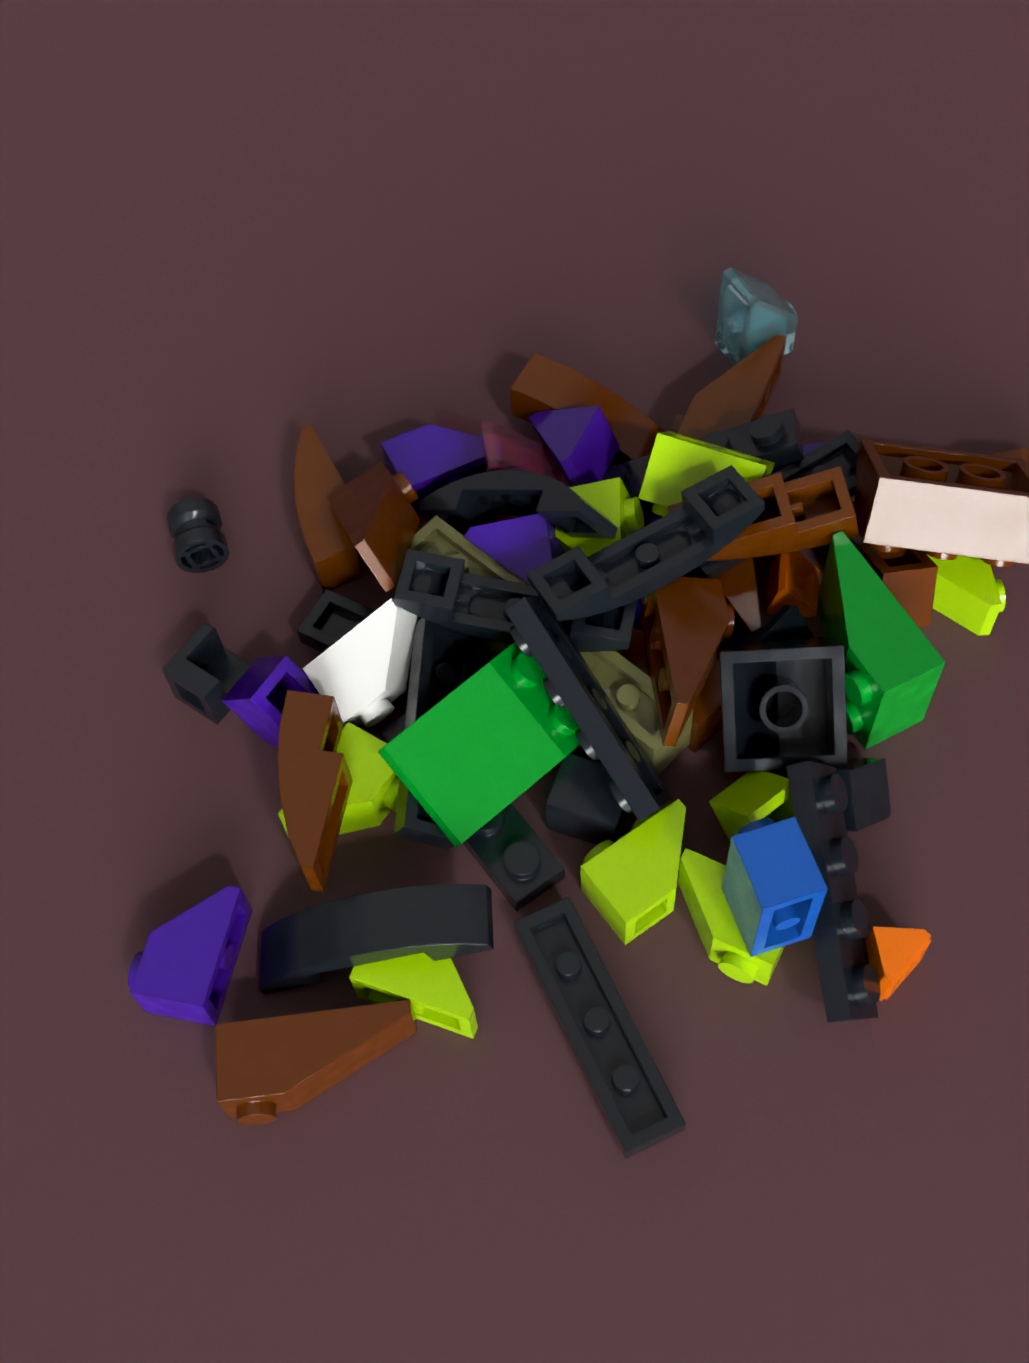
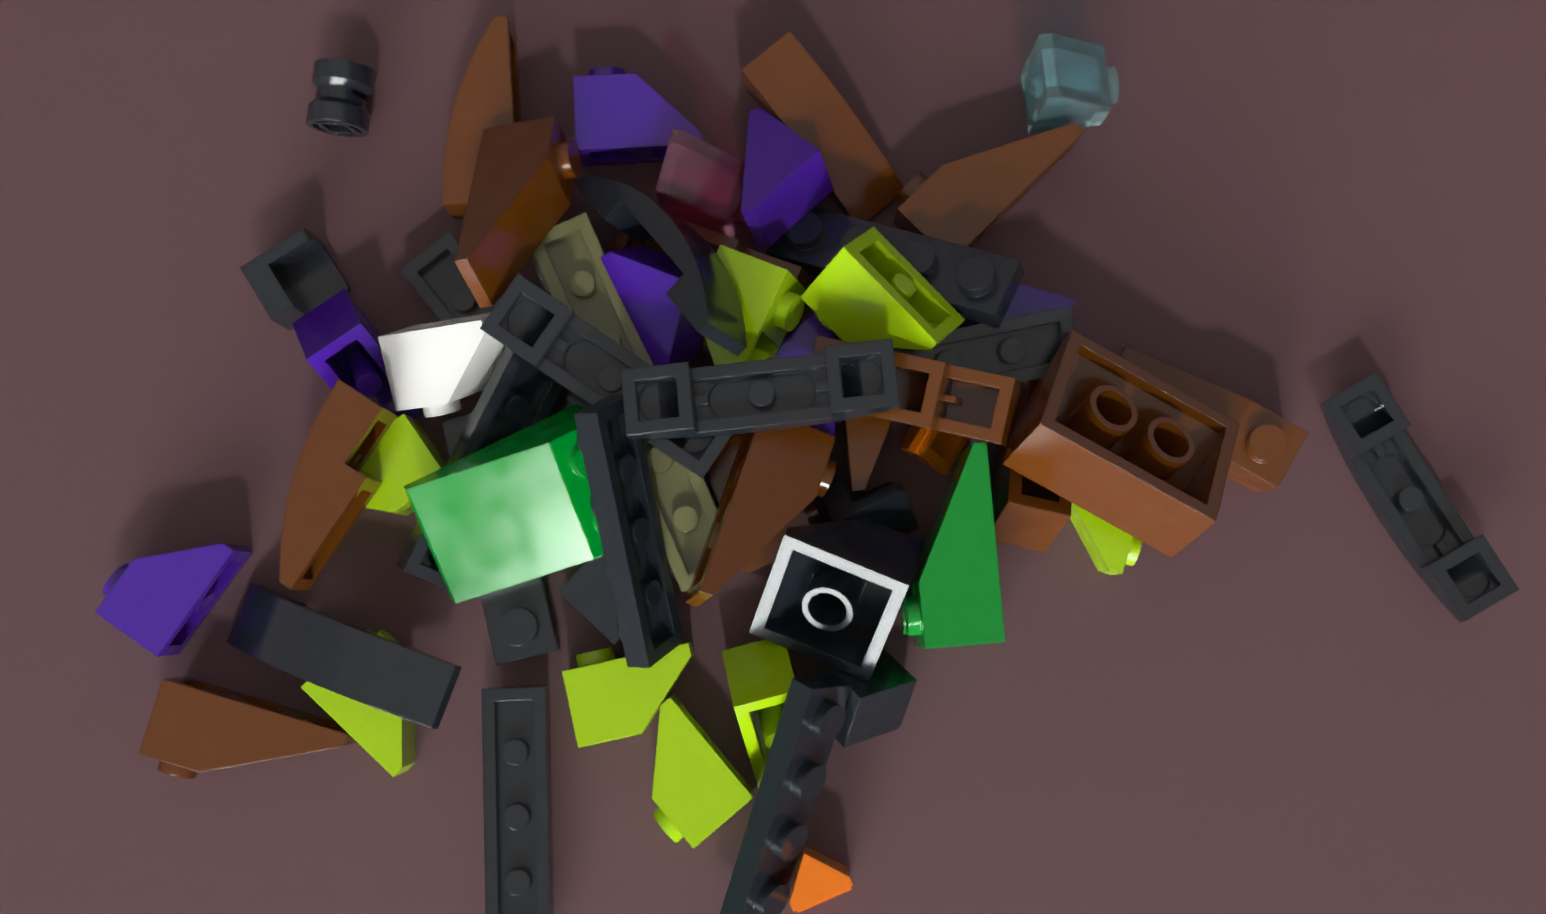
camera: 20 degrees right, 25 degrees up
(772, 884) = (708, 802): blue brick -> none

